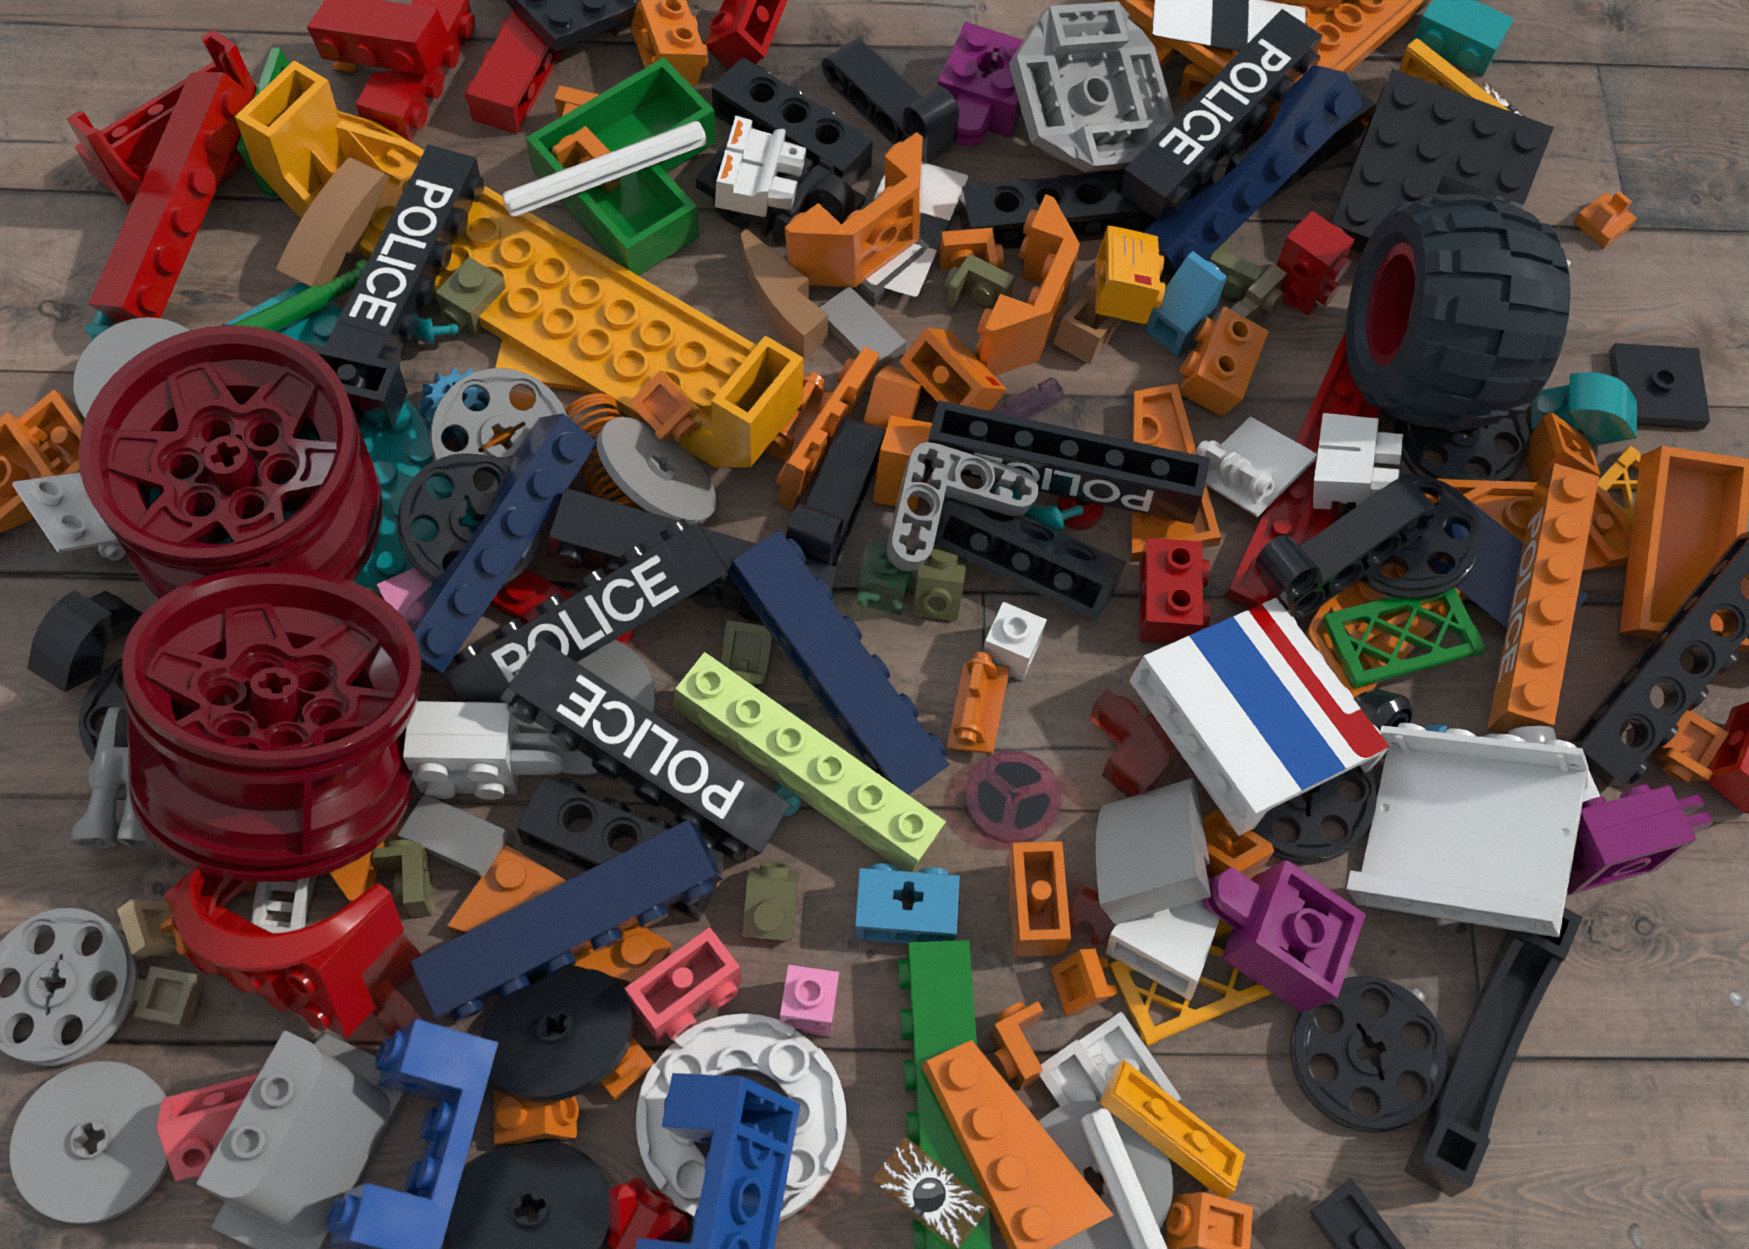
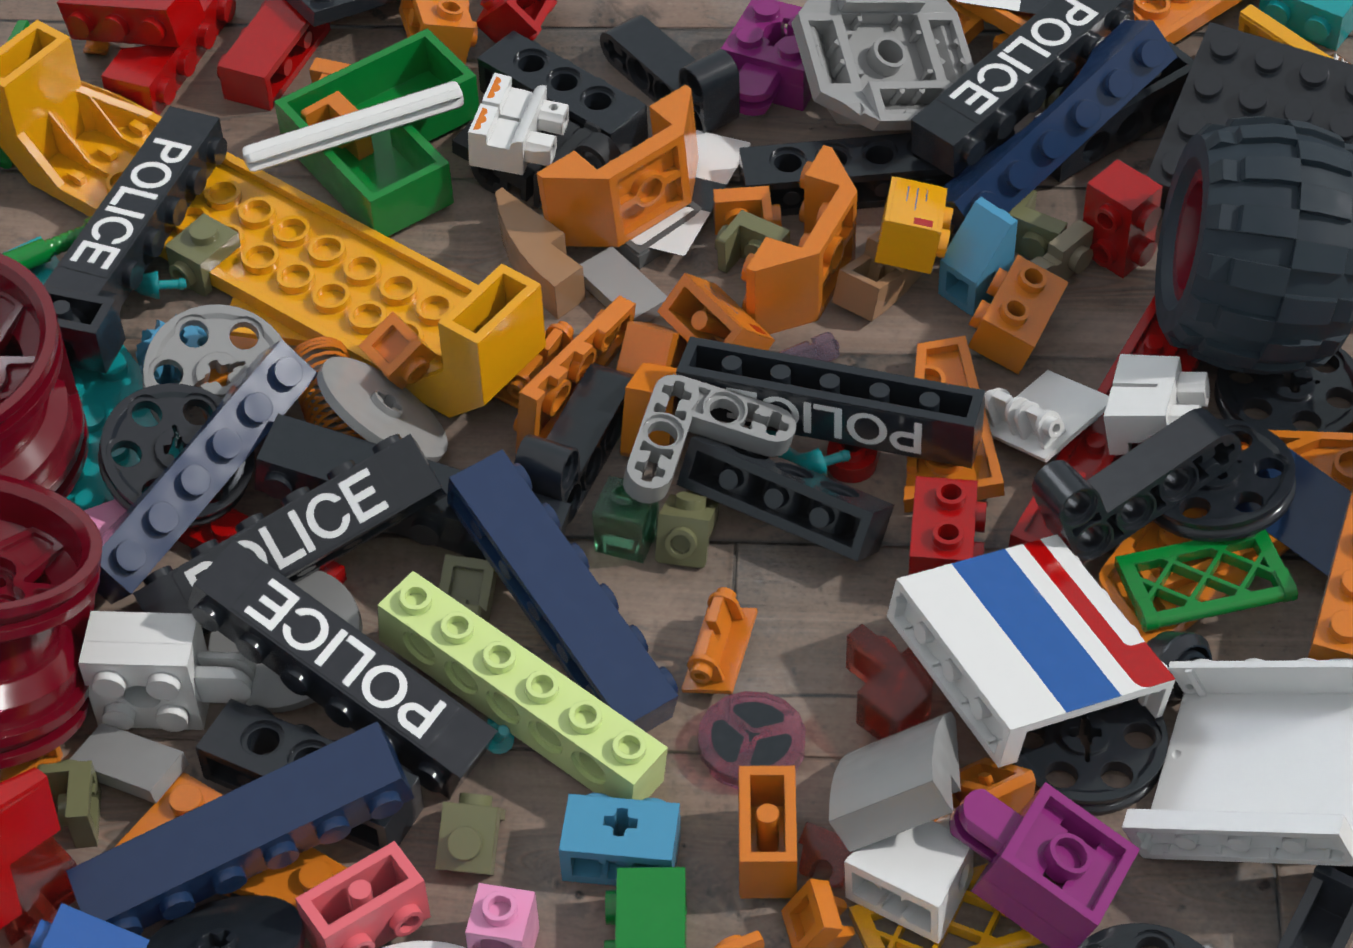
camera: 10 degrees right, 15 degrees down
(333, 224) = (64, 182): medium nougat slope -> none
(1014, 639) = (764, 579): white brick -> none

